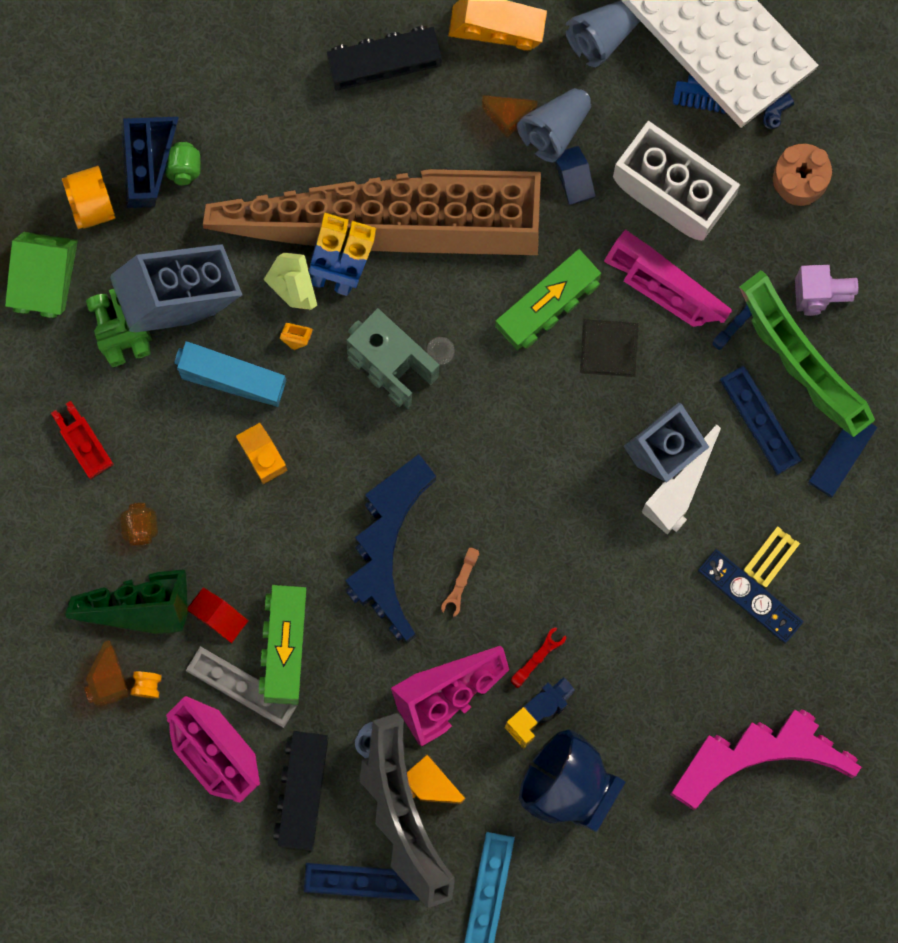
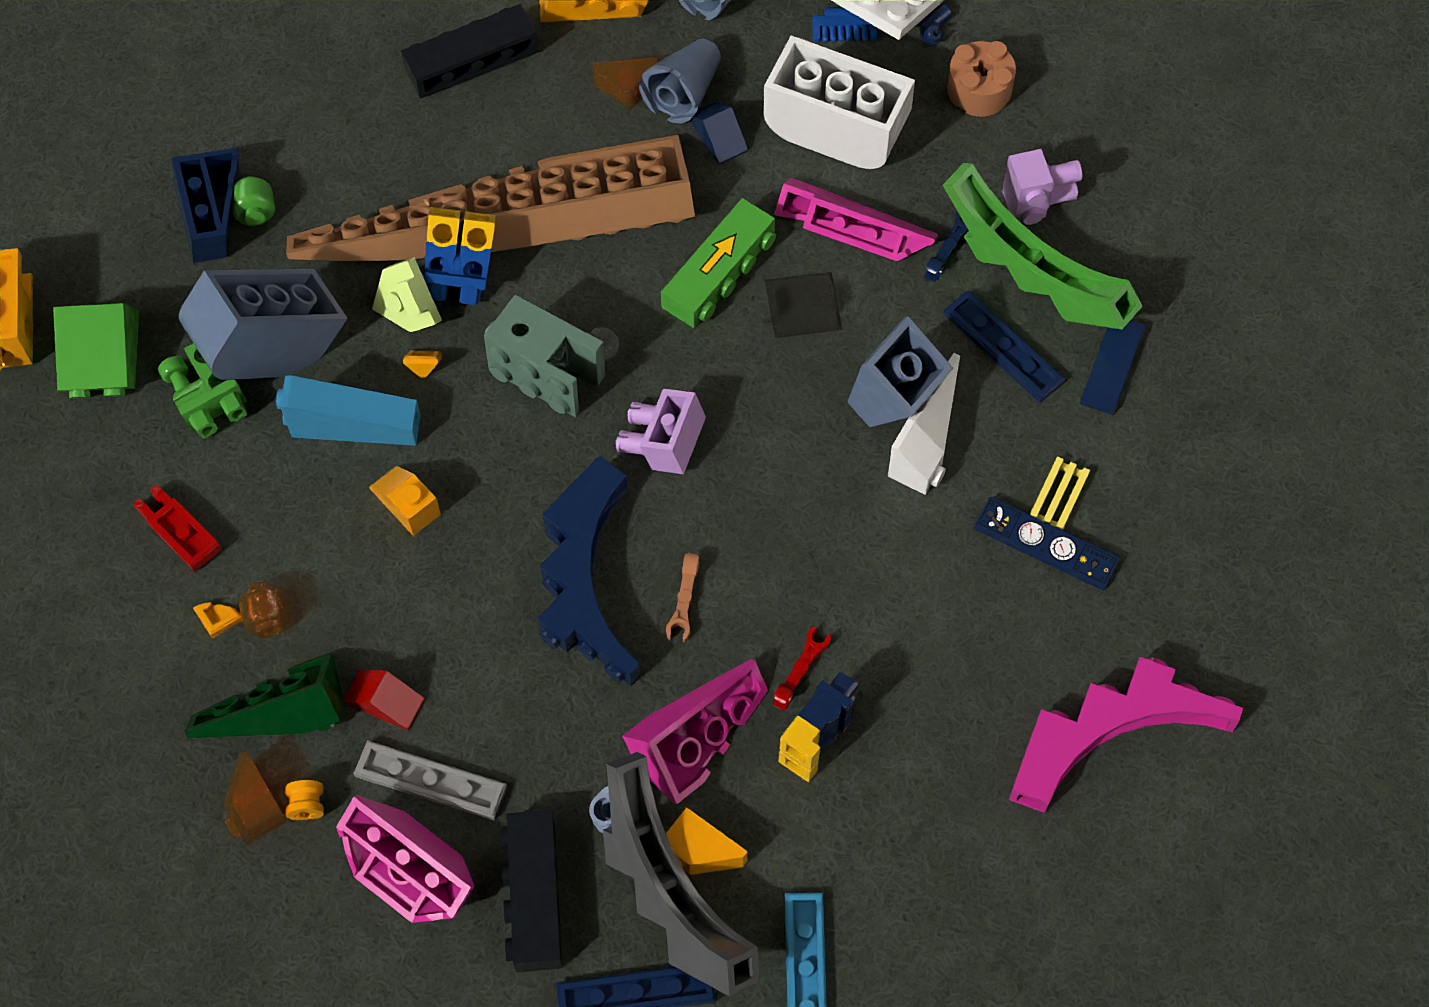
camera: 10 degrees left, 15 degrees down
(88, 197) = (144, 252): light orange brick -> none
(102, 521) = (217, 617): none -> light orange tile
(284, 645) = (475, 714): bright green brick -> none
(479, 444) = (670, 430): none -> lavender brick
(581, 786) = (888, 798): dark blue plate -> none

